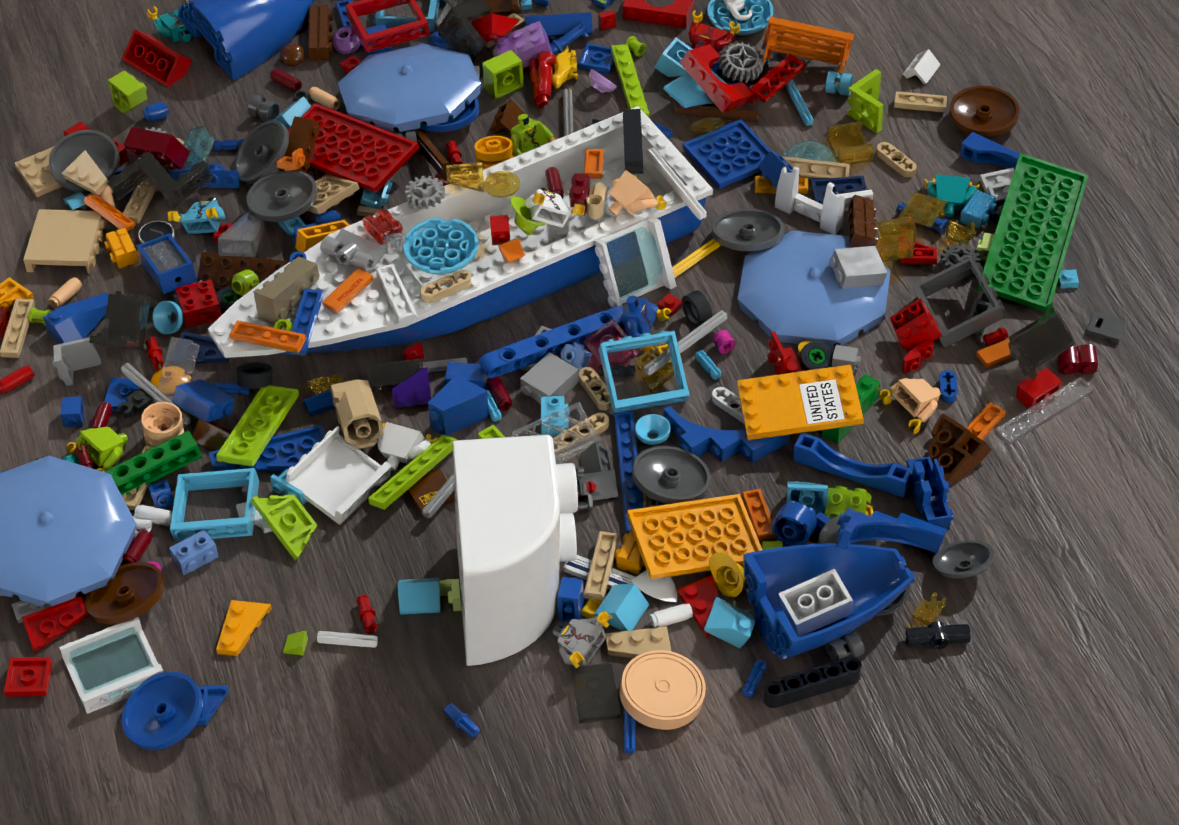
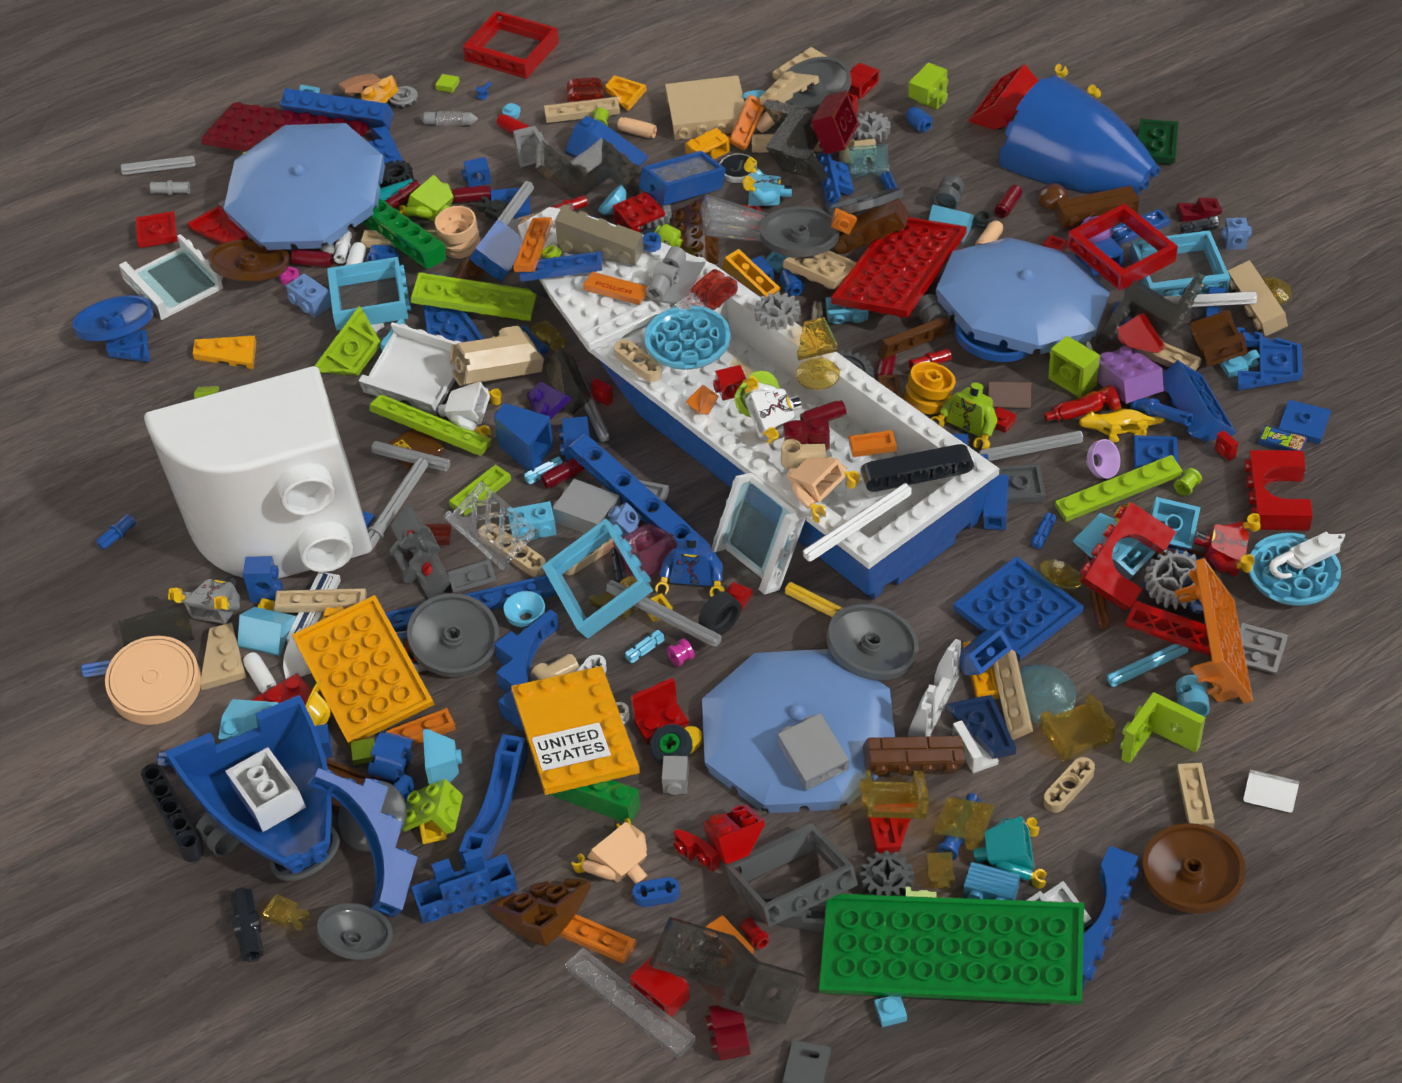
camera: 80 degrees right, 0 degrees up
(722, 417) = (562, 666): none -> tan piece

